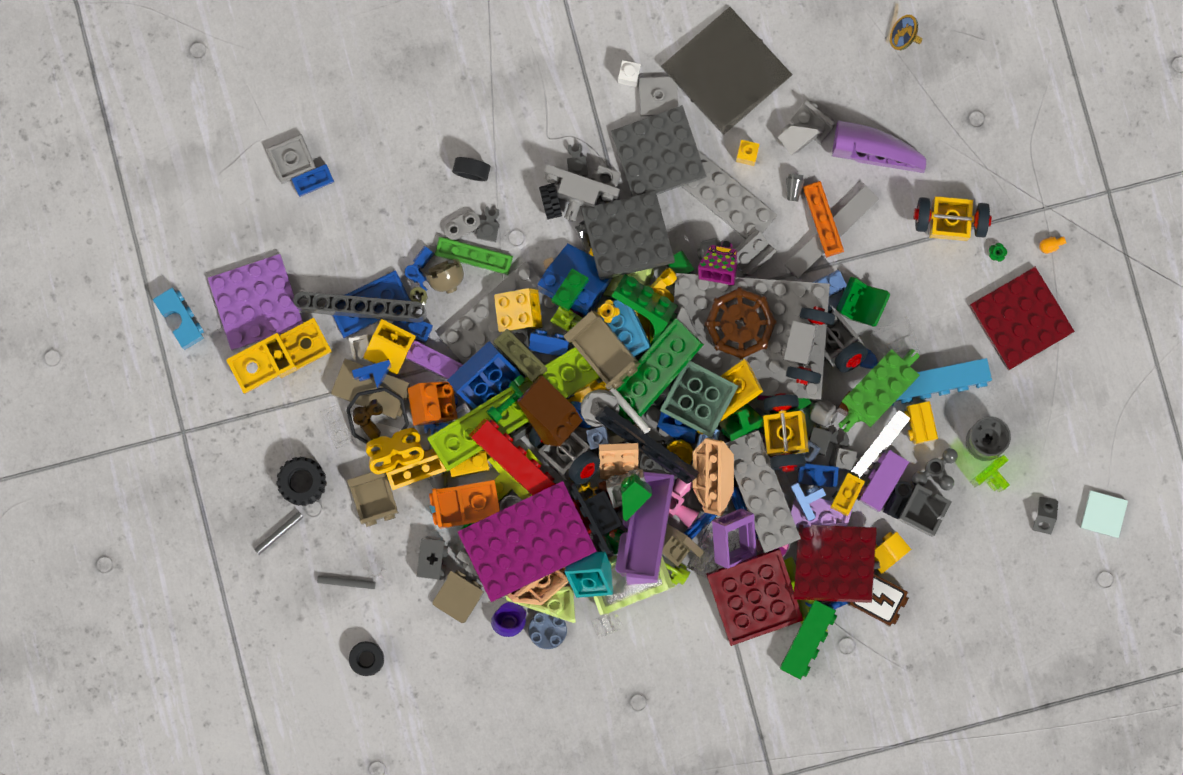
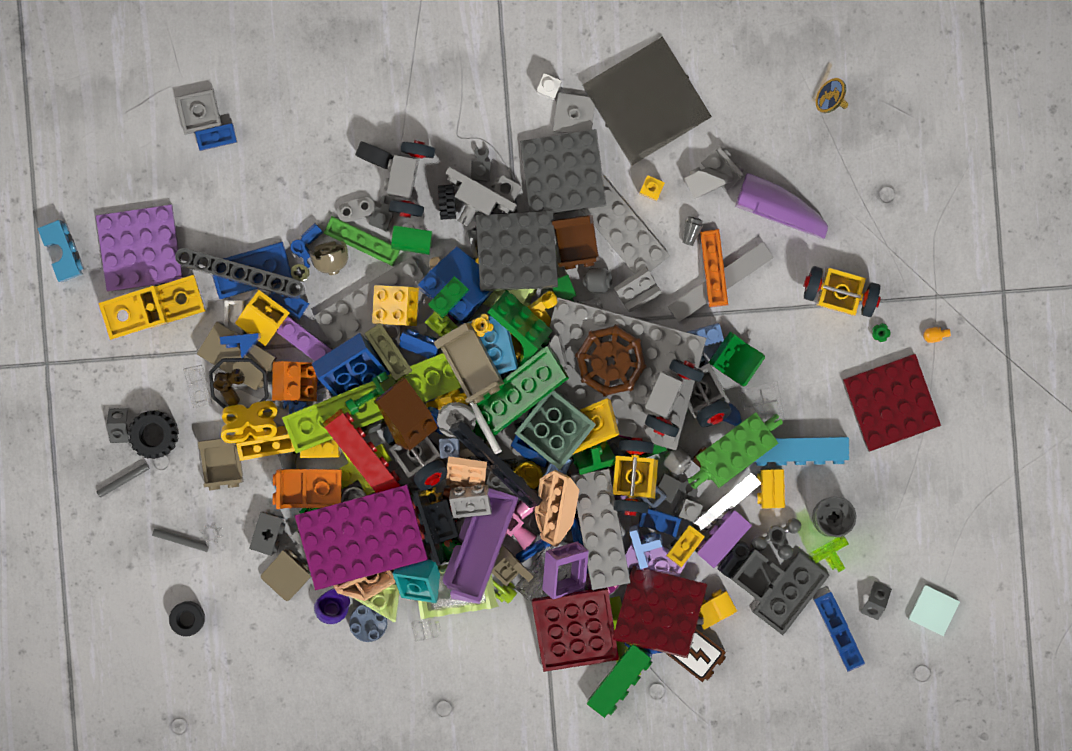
camera: 10 degrees right, 5 degrees up
(264, 480) = (117, 427): none -> dark grey bracket
(502, 187) = (403, 178): none -> brick
(523, 243) = (411, 240): none -> green brick
(634, 494) = (474, 511): green slope -> none
(684, 217) = (576, 241): none -> reddish brown panel
(719, 264) = (601, 297): magenta torso -> none
(960, 523) = (791, 594): none -> dark grey tile
(1015, 552) = (839, 632): none -> blue slope

